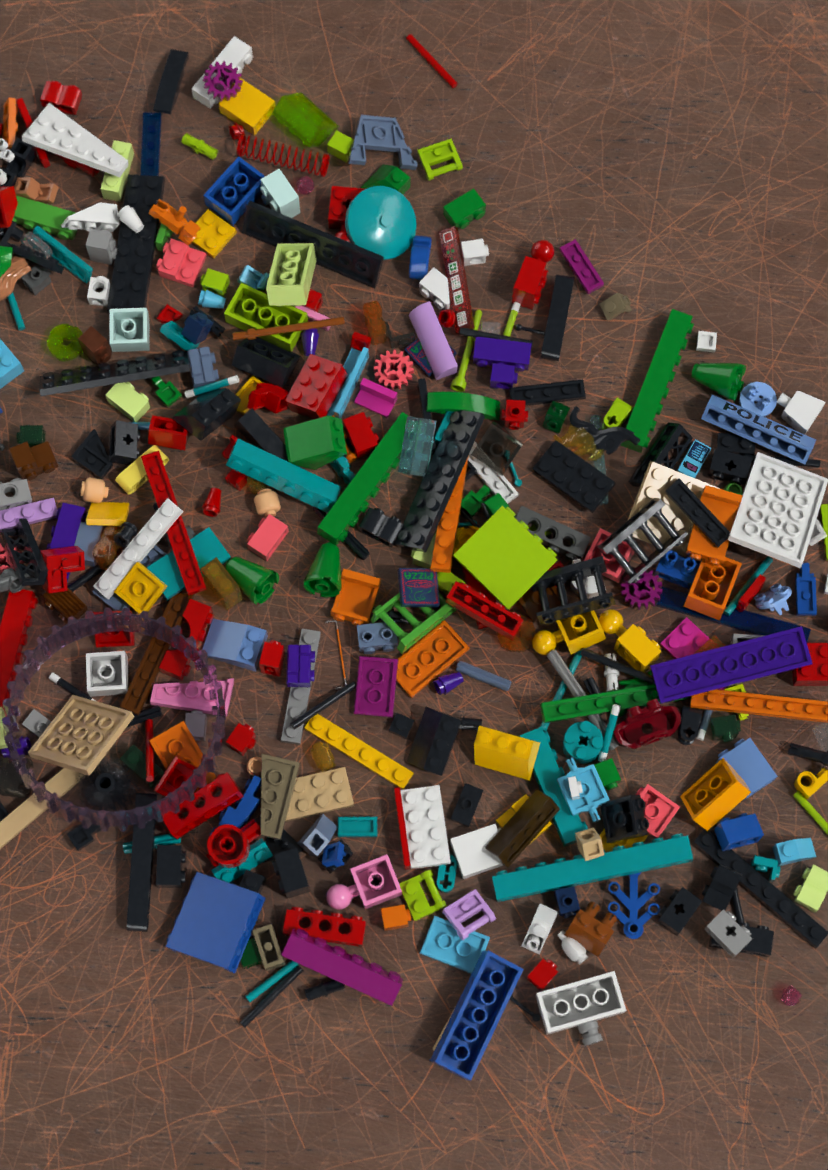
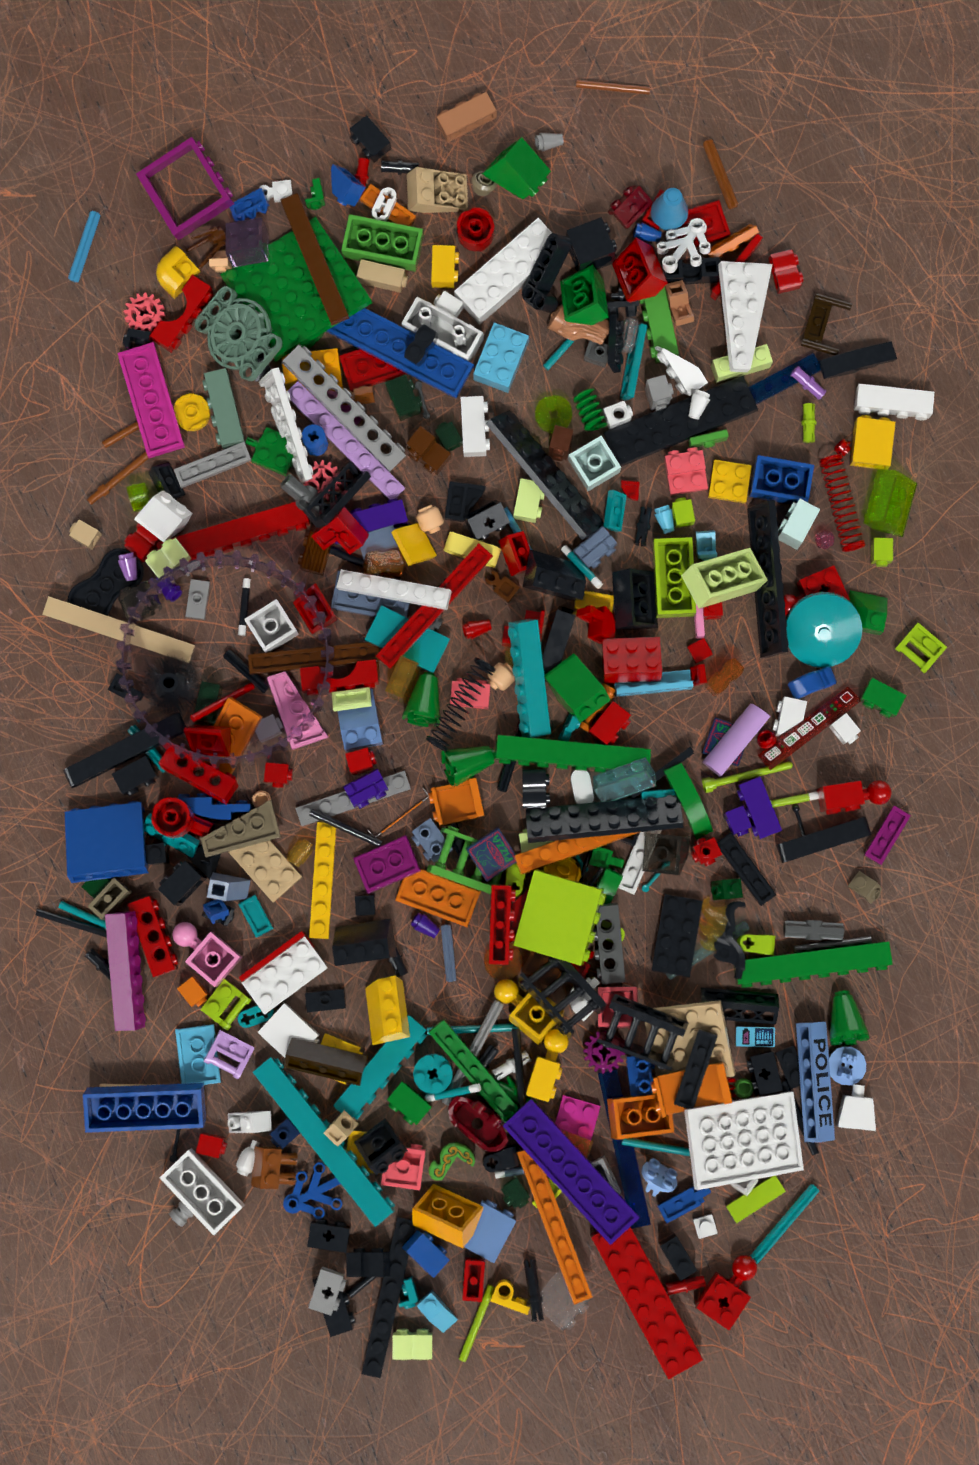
camera: 65 degrees right, 10 degrees up
(35, 411) = (474, 426): none -> white brick
(81, 311) = (589, 410): none -> green piece
(81, 734) = (202, 637): tan plate -> none
(119, 95) = (818, 320): none -> dark brown plate
(125, 534) = (399, 571): black bush -> none
(140, 588) = (359, 612): yellow plate -> none
(166, 128) = (808, 382): none -> medium lavender pin
(167, 392) = (555, 530): green plate -> none
(175, 221) = (717, 444): orange piece -> none
(191, 460) = (504, 588): none -> reddish brown plate
(197, 327) = (629, 521): dark blue brick -> none
(213, 637) = (351, 699): none -> yellowish green plate
(225, 73) = (890, 415): magenta gear -> none
(252, 333) = (647, 575): dark orange bar -> none
(293, 579) = (484, 666): none -> black piece
(309, 341) = (675, 628): dark purple cone -> none
(340, 333) = (699, 650): none -> red tile
(376, 398) = (653, 717): dark pink panel -> none
(381, 135) = (912, 579): sand blue wing -> none
(393, 361) = (677, 715): coral gear -> none
(399, 341) = (719, 710): clear smoke bracket -> none
(401, 488) = (582, 787): none -> white tile
(473, 333) = (770, 791): black bar -> none
(491, 327) = (775, 785): clear plate -> none
(575, 787) = (381, 1090): white plate -> none
(593, 790) = (387, 1097): medium azure plate -> none
(629, 365) = (813, 930): none -> dark grey piece
(649, 357) = (832, 944): none -> flat silver bar
(664, 771) = (447, 1156): none -> bright green animal
(706, 341) = (877, 989): white plate -> none
(749, 595) = (652, 1154): red tile -> none
(782, 802) = (473, 1279): none -> red brick
(791, 996) = (306, 1372): clear pink plate -> none

